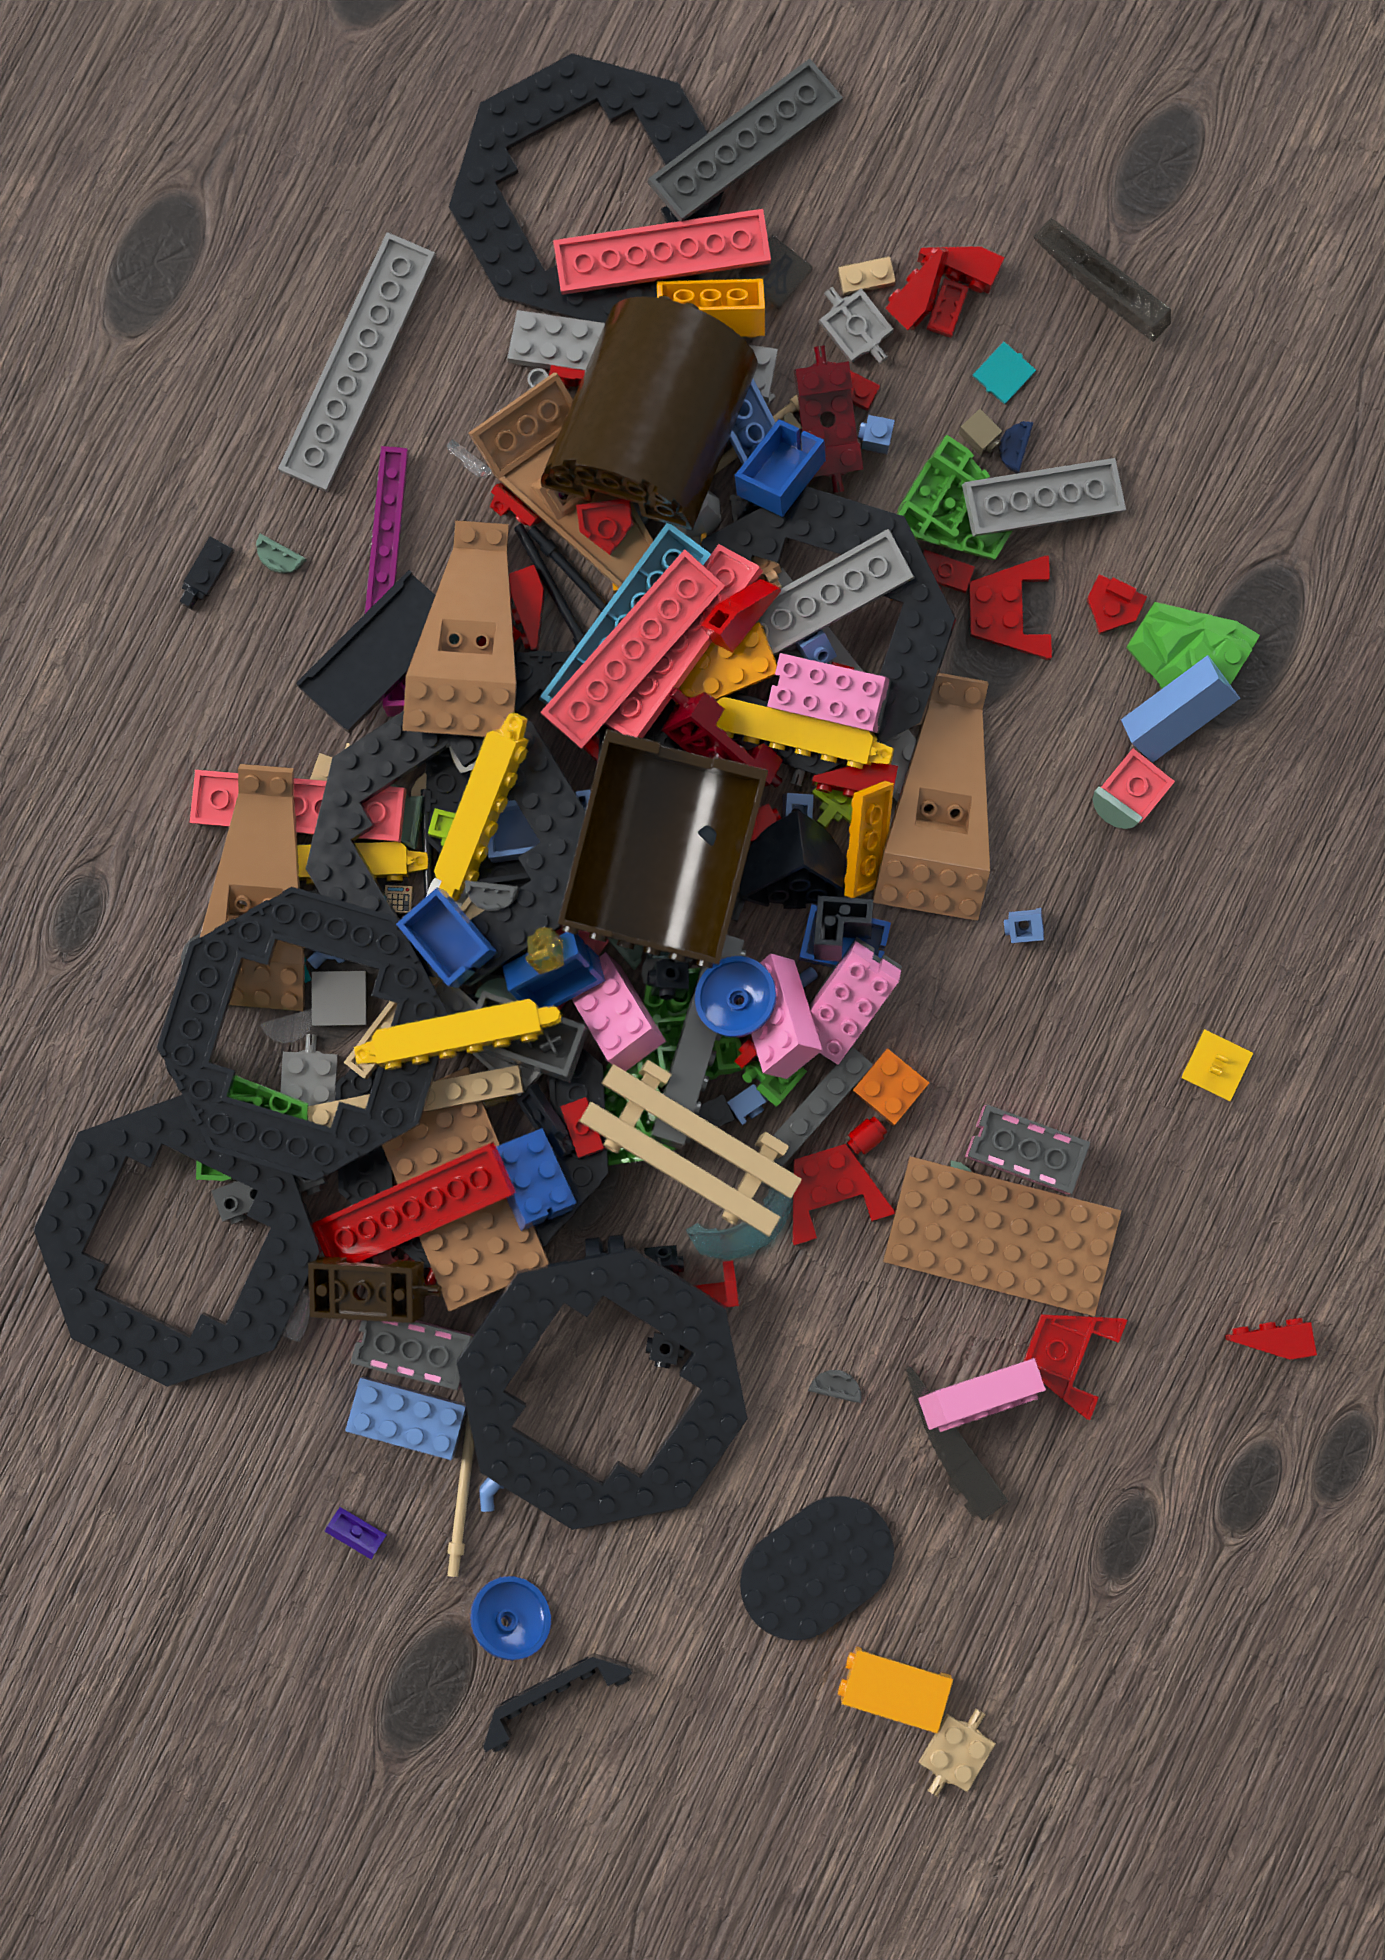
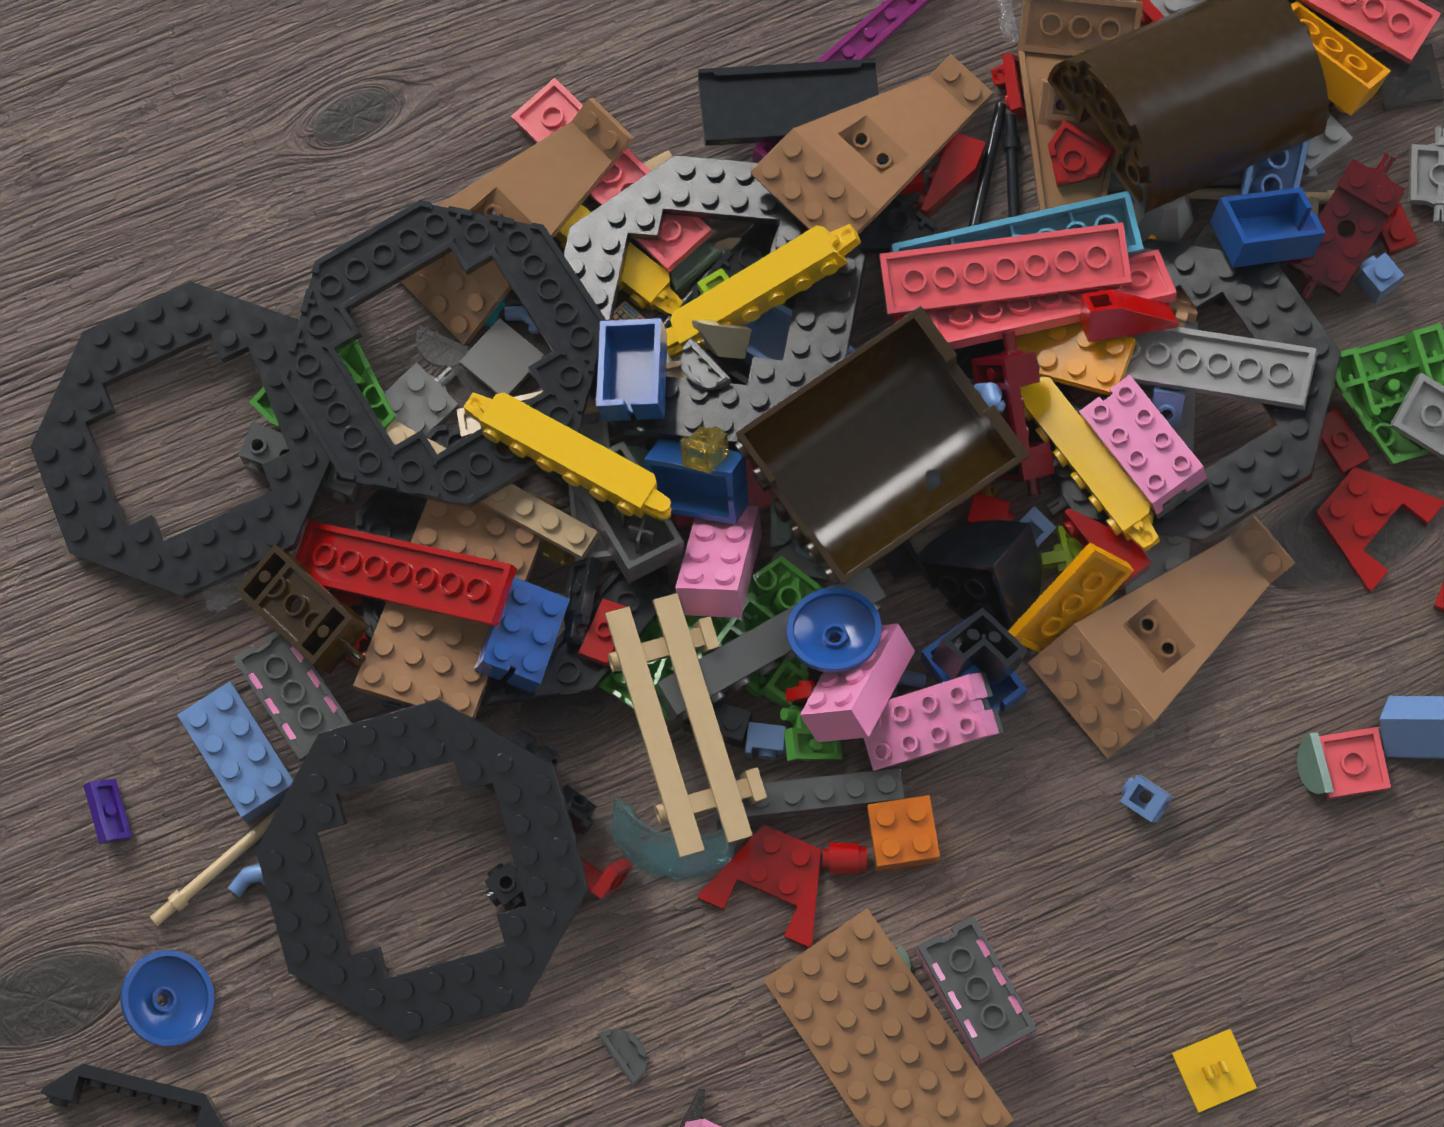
camera: 40 degrees right, 10 degrees down
(489, 862) = (724, 340): none -> dark tan slope
(668, 979) = (791, 572): black brick -> none
(699, 746) = (991, 394): none -> medium blue arm

